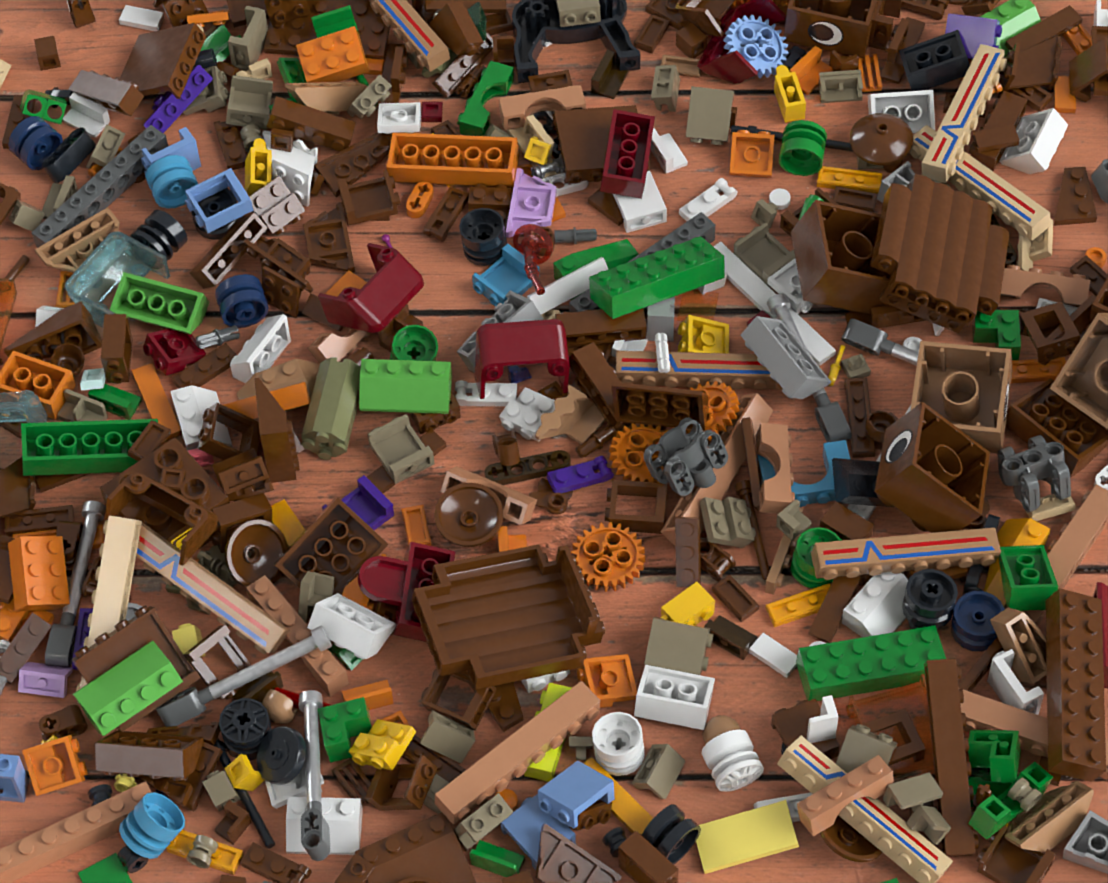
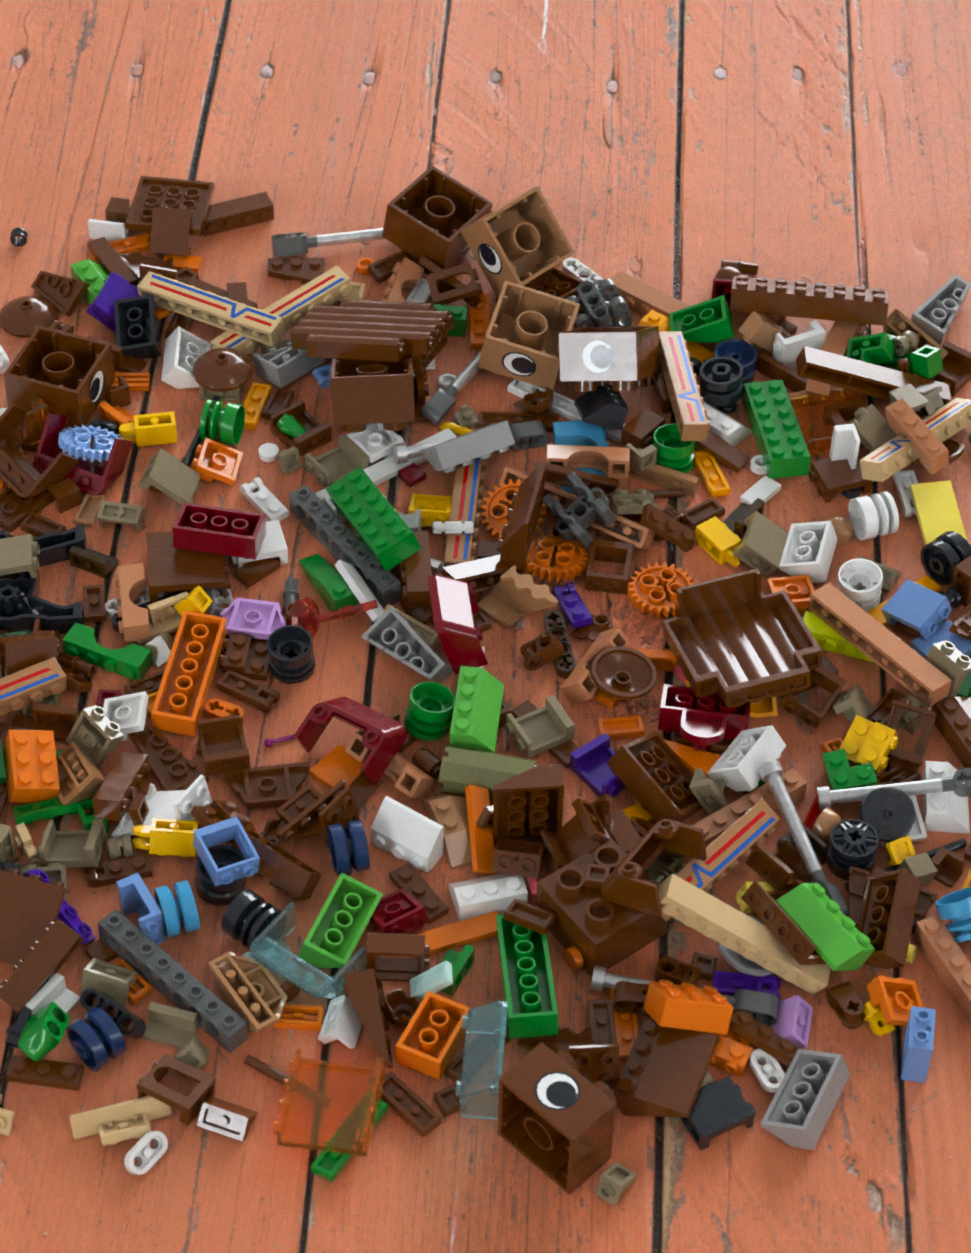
camera: 90 degrees left, 10 degrees down
(81, 408) = (470, 990): dark tan panel -> none
(100, 793) = (927, 969): black wheel -> none
(217, 337) = (383, 876): dark grey axle -> none
(375, 694) = (809, 764): orange panel -> none
(503, 276) = (337, 649): dark azure panel -> none
(525, 413) = (504, 634): white plate -> none
(840, 86) = (144, 398): dark tan hinge -> none
(1039, 141) = (227, 272): white slope -> none

